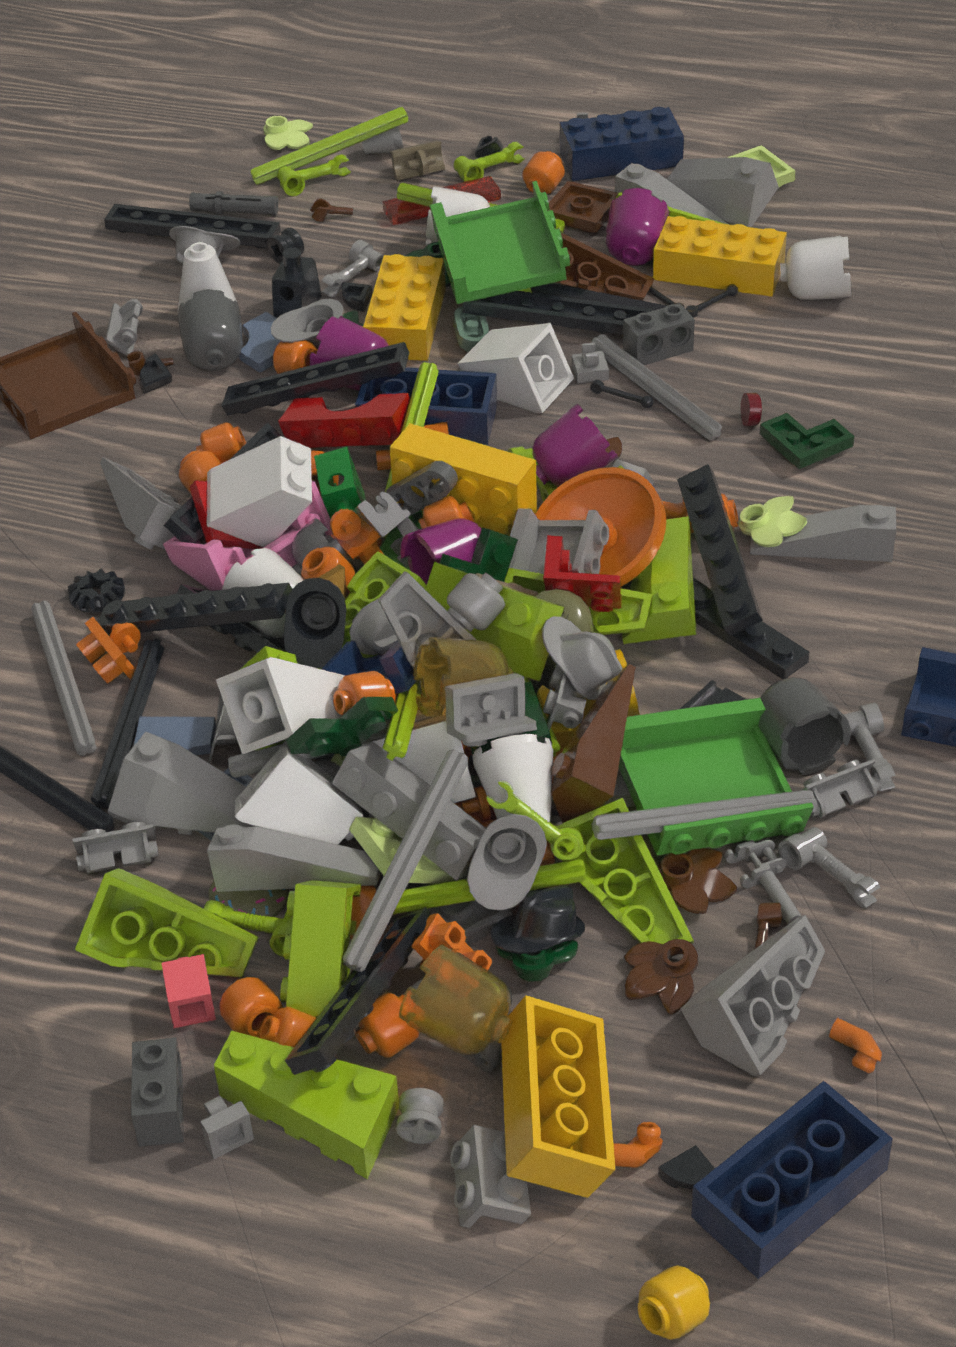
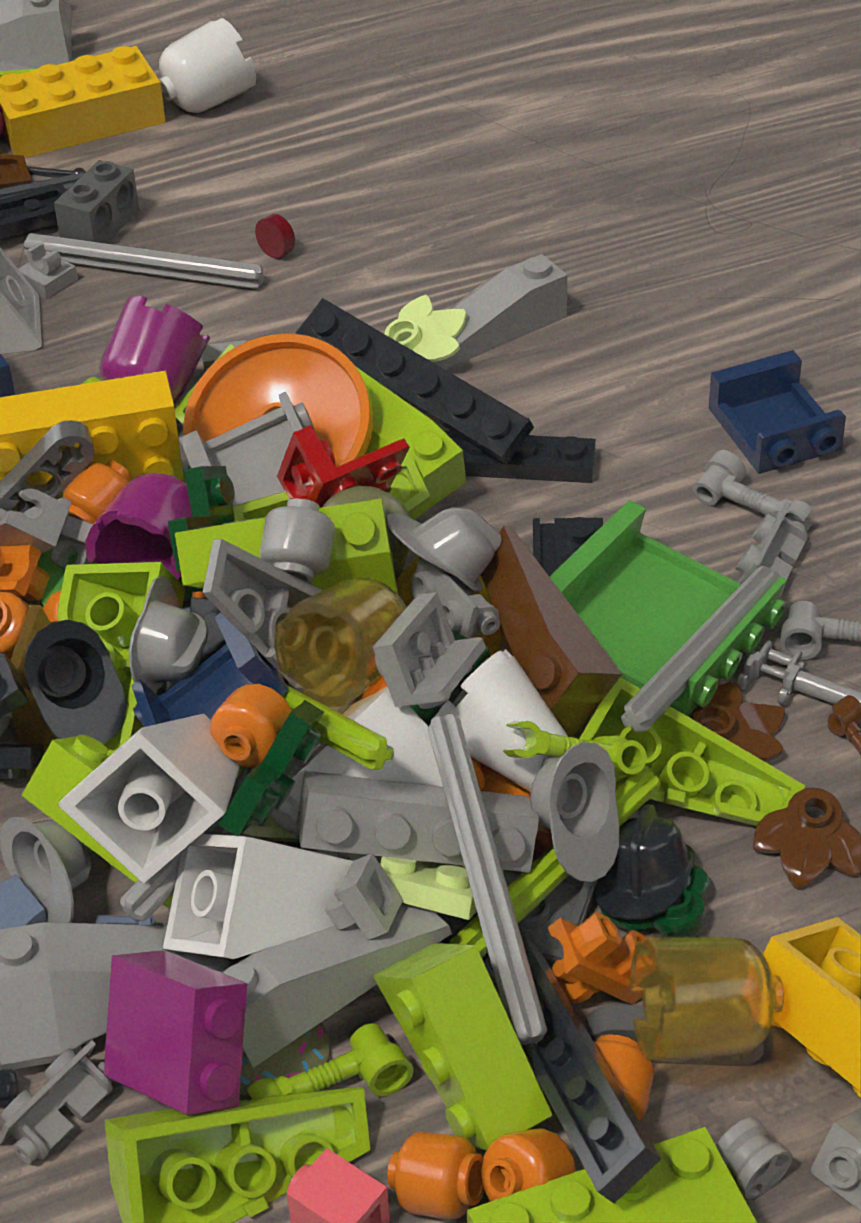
camera: 40 degrees left, 0 degrees up
(182, 842) = (175, 1031): none -> magenta brick
(339, 833) = (365, 899): none -> light grey tile
(598, 387) = (78, 290): black hinge -> none
(731, 290) = (119, 133): black hinge -> none
(802, 725) = (683, 504): dark grey cylinder -> none
(805, 446) = (364, 247): dark green plate -> none

